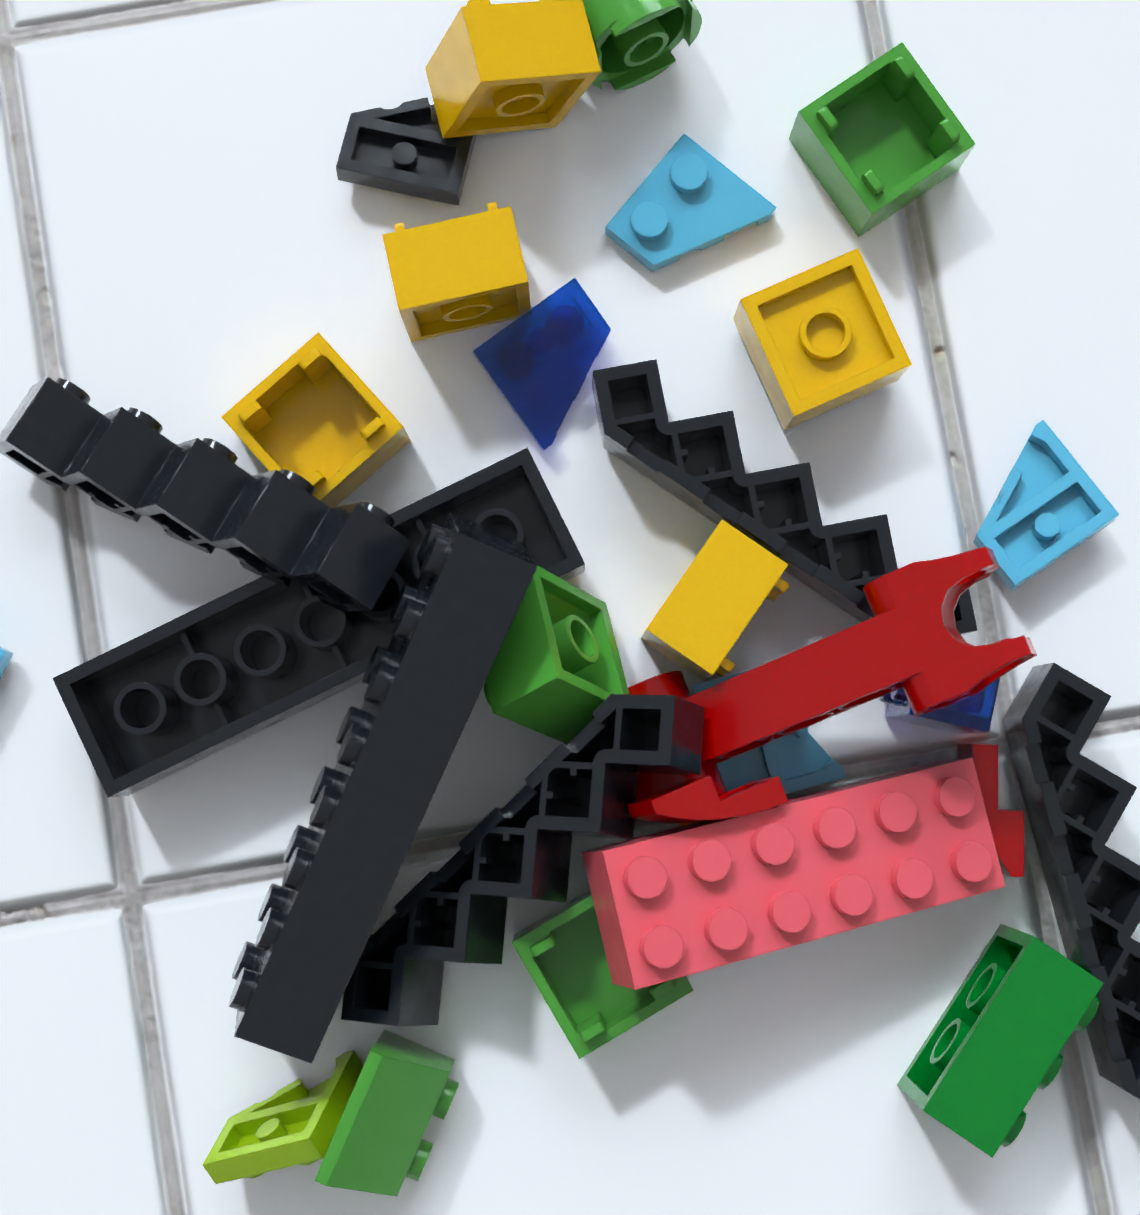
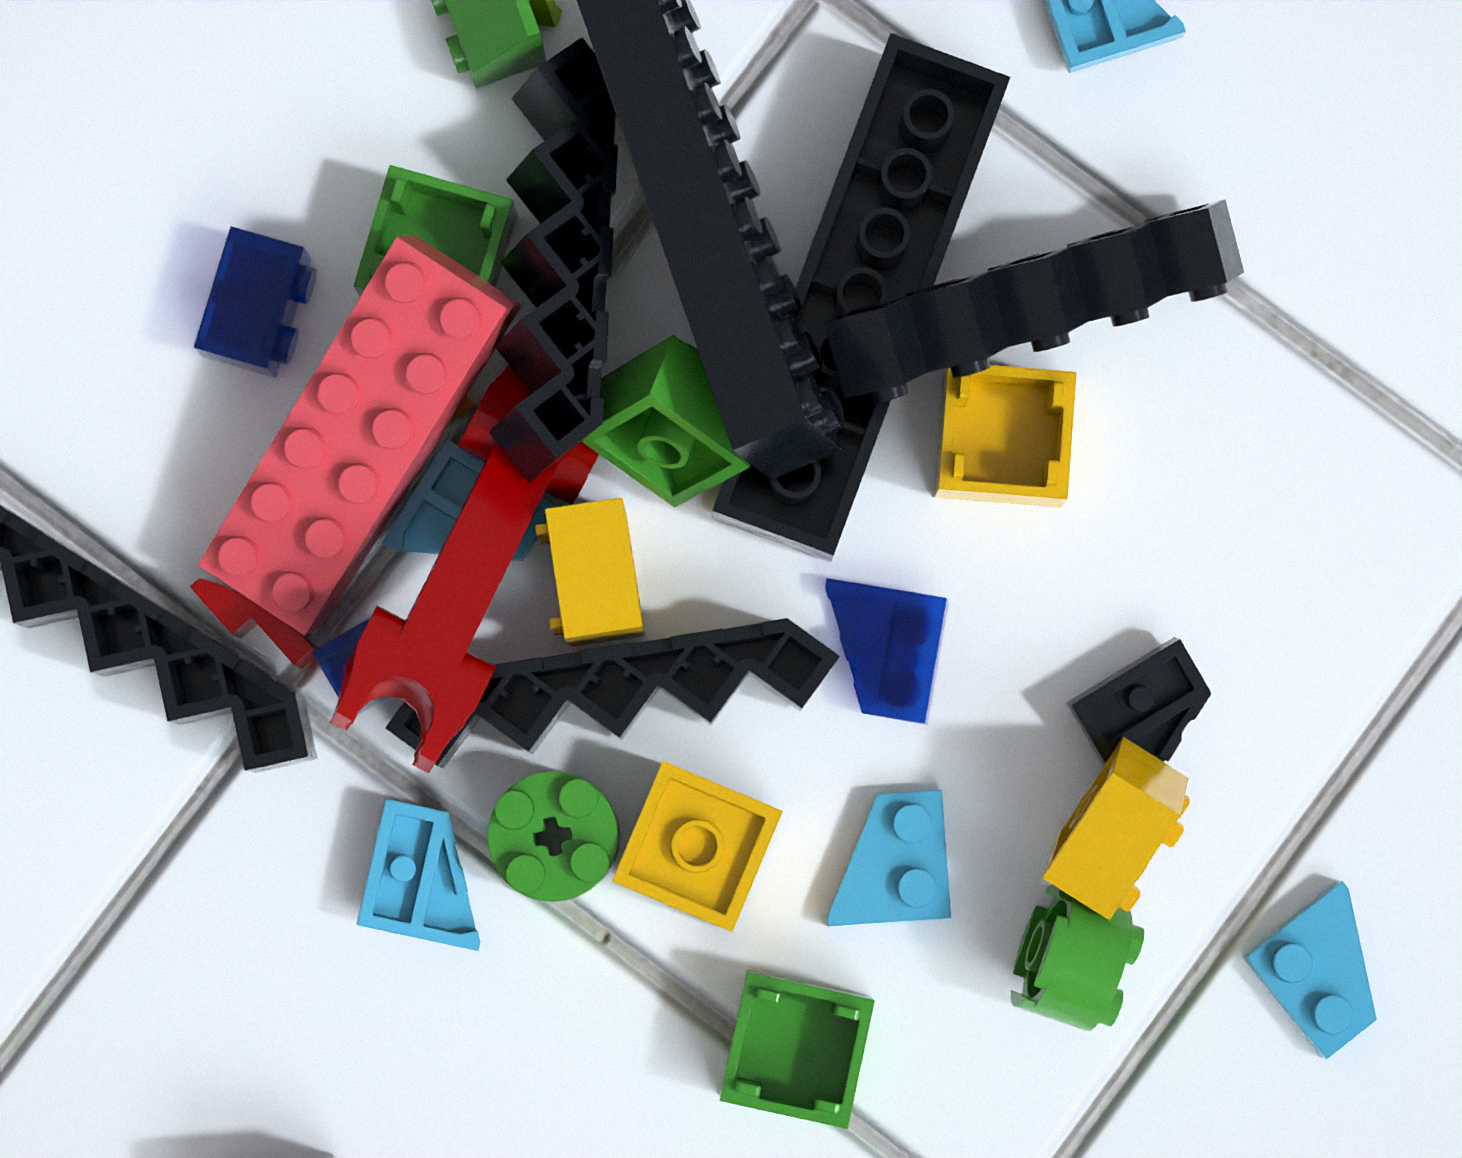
camera: 135 degrees right, 0 degrees up
(458, 273) = (1010, 640): yellow container -> none
(698, 801) = (473, 407): red slope -> none
(774, 1050) = (255, 302): none -> clear blue brick
(952, 439) = (524, 813): none -> bright green brick
(1001, 1038) = (104, 454): green brick -> none

